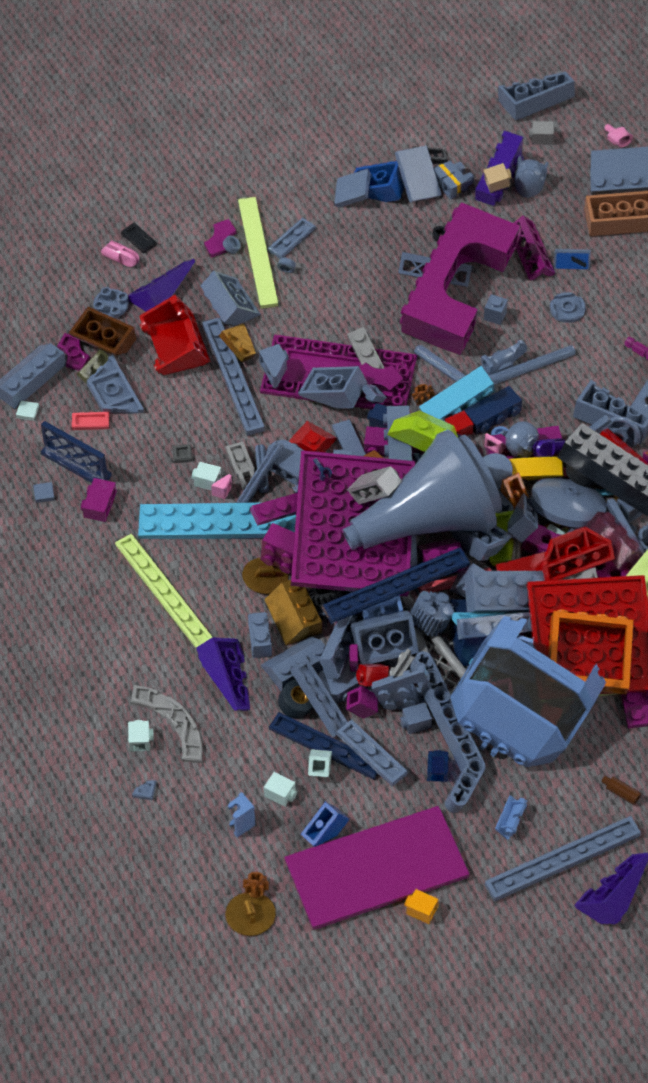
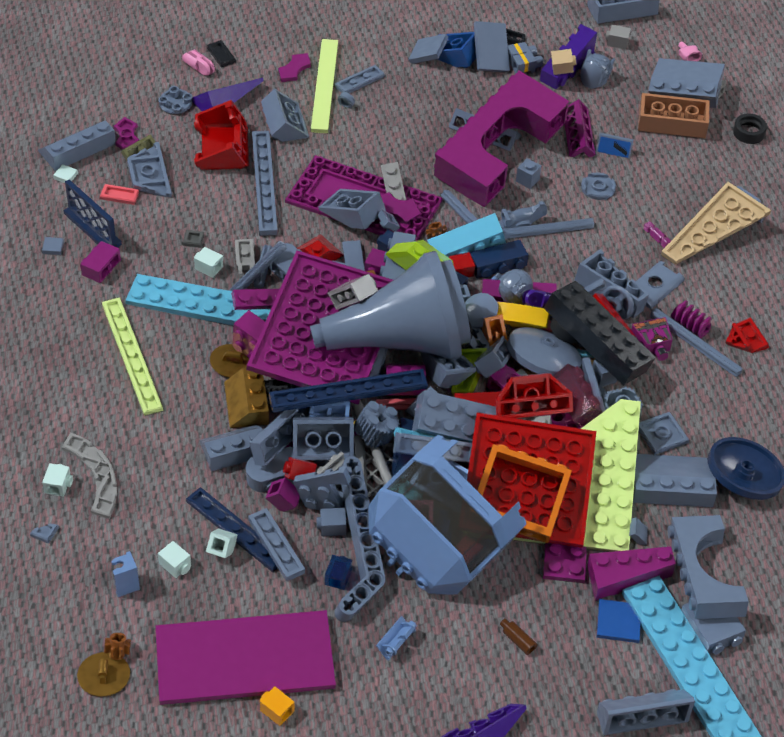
camera: 10 degrees right, 5 degrees down
(104, 332) = (158, 121): reddish brown slope -> none
(222, 487) = (219, 274): bright pink slope -> none
(222, 662) = (161, 431): dark purple wedge -> none
(231, 244) = (302, 74): sand blue tile -> none
(239, 342) = (279, 154): pearl gold wing -> none
(260, 635) = (206, 412): sand blue brick -> none
(274, 363) = (304, 177): sand blue slope -> none
(294, 701) = (221, 478): black wheel -> none
(319, 696) = (241, 478): sand blue plate -> none
(325, 825) = (206, 603): blue slope -> none
(328, 471) = (310, 271): dark blue hand -> none
(353, 657) = (286, 449): magenta tile -> none
(494, 444) = (488, 286): bright pink slope -> none
(562, 858) = (436, 691): sand blue plate -> none

